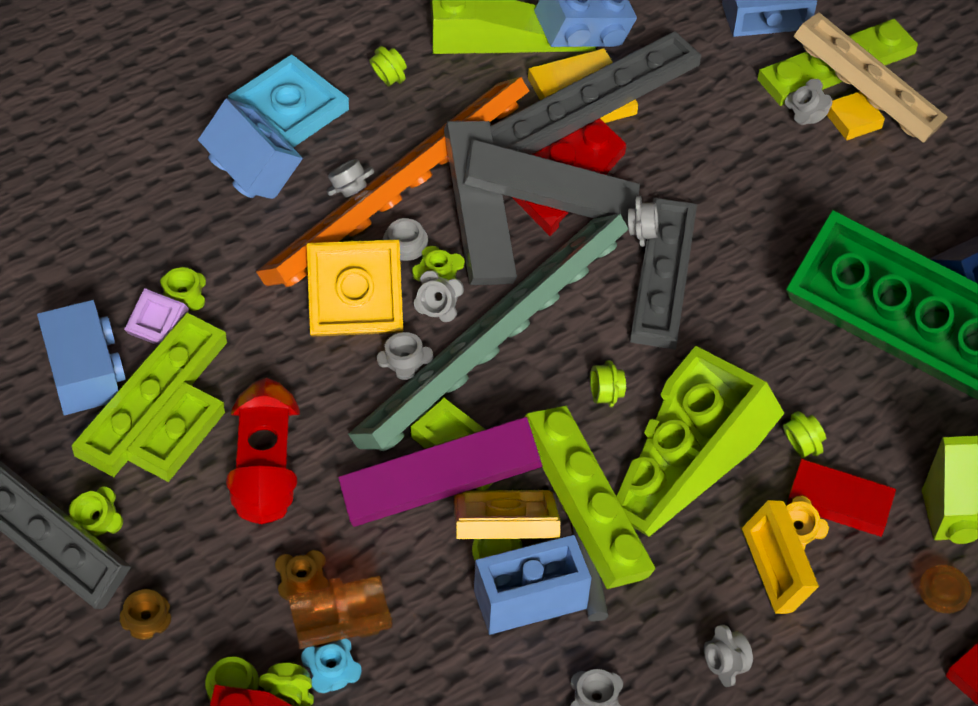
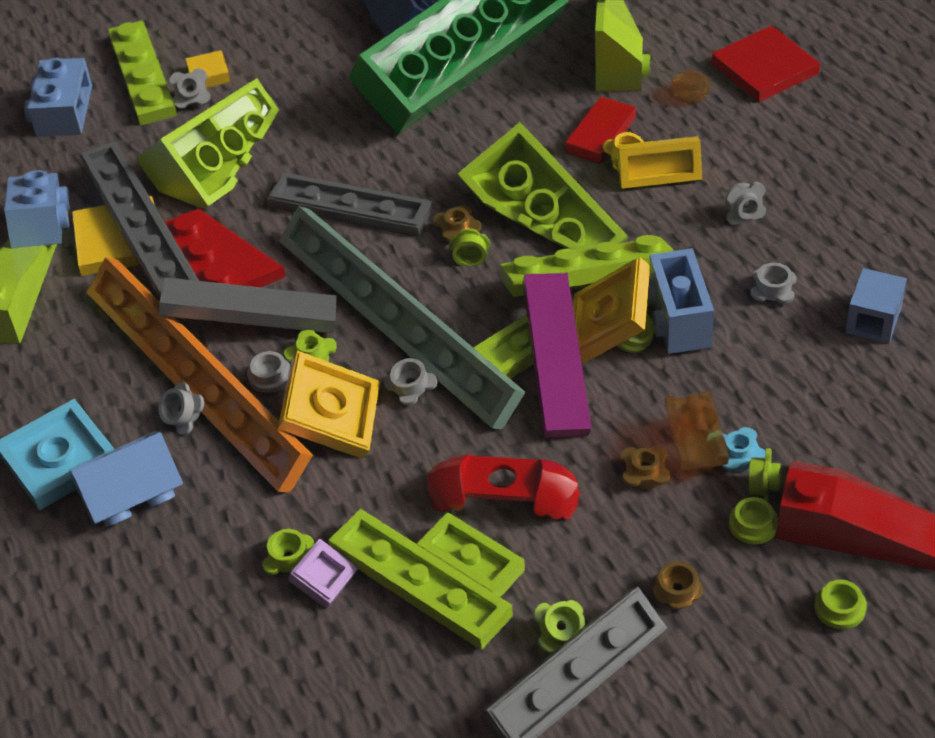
camera: 75 degrees left, 5 degrees down
(80, 357) = (370, 630): medium blue brick -> none
(388, 65) = (36, 368): lime plate -> none
(428, 304) = (357, 346): light grey plate -> none
(548, 182) = (242, 253): dark grey tile -> none
(643, 221) = (305, 194): light grey plate -> none
(644, 379) = (456, 220): none -> pearl gold plate
(714, 135) = (206, 152): none -> lime wedge
(805, 434) = (547, 133): lime plate -> none
(861, 69) = (170, 47): tan plate -> none

